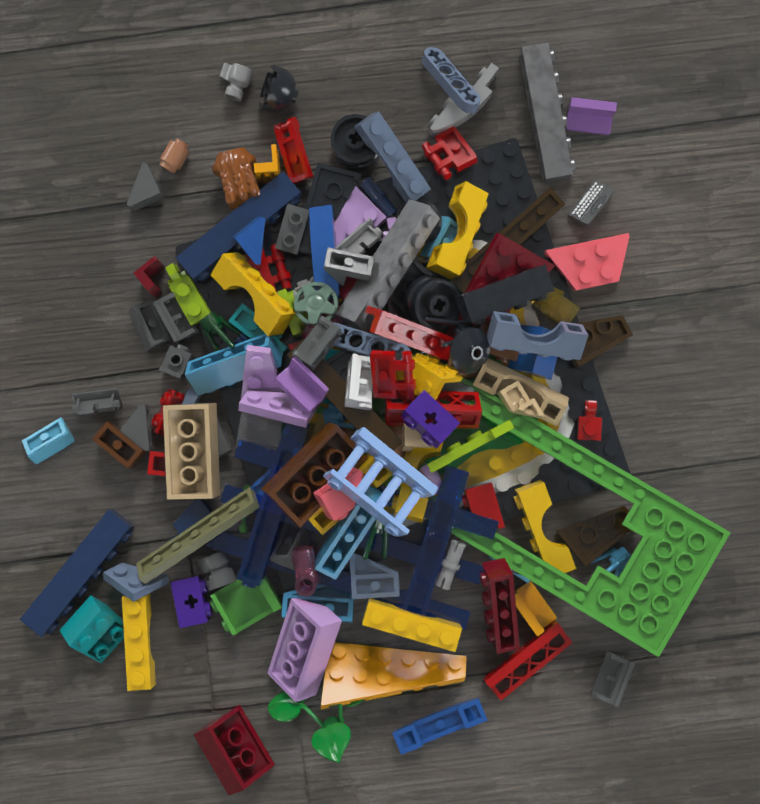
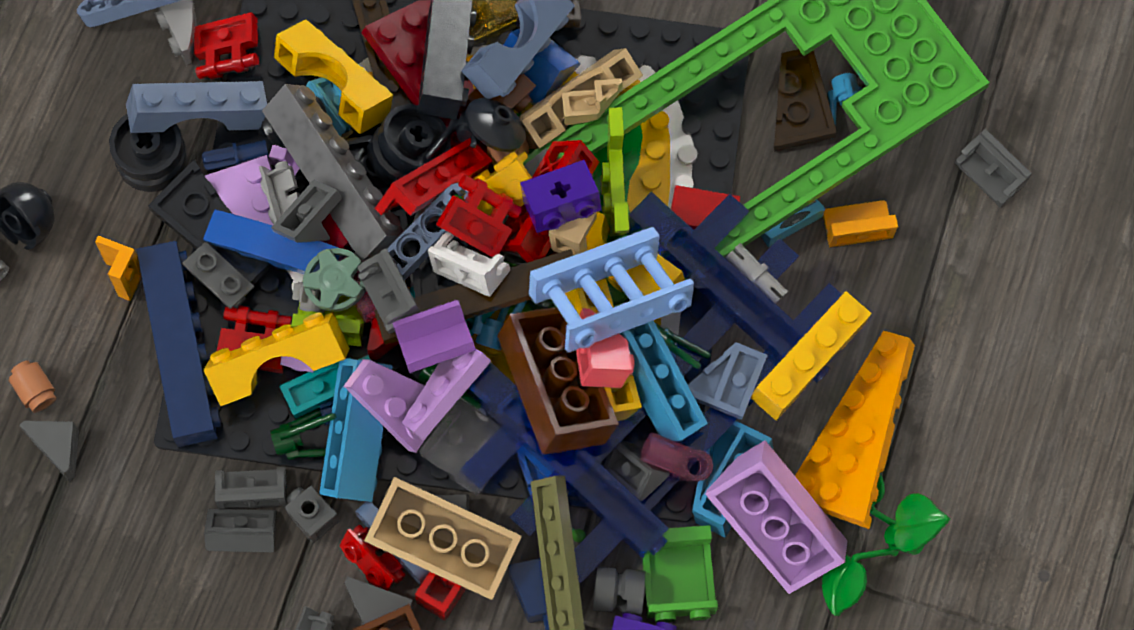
camera: 65 degrees left, 15 degrees down
(147, 272) = (181, 493): dark red panel -> none
(187, 295) = (229, 455): lime hinge -> none
(237, 175) = (109, 314): dark orange piece -> none
(251, 239) = (205, 325): blue slope -> none
(293, 151) = (122, 230): red plate -> none
(439, 724) = (956, 402): blue slope -> none
(500, 605) = (838, 245): dark red brick -> none
(521, 655) = (915, 261): red fence -> none
(534, 502) = (726, 153): yellow arch -> none
(589, 426) = (660, 46): red plate -> none

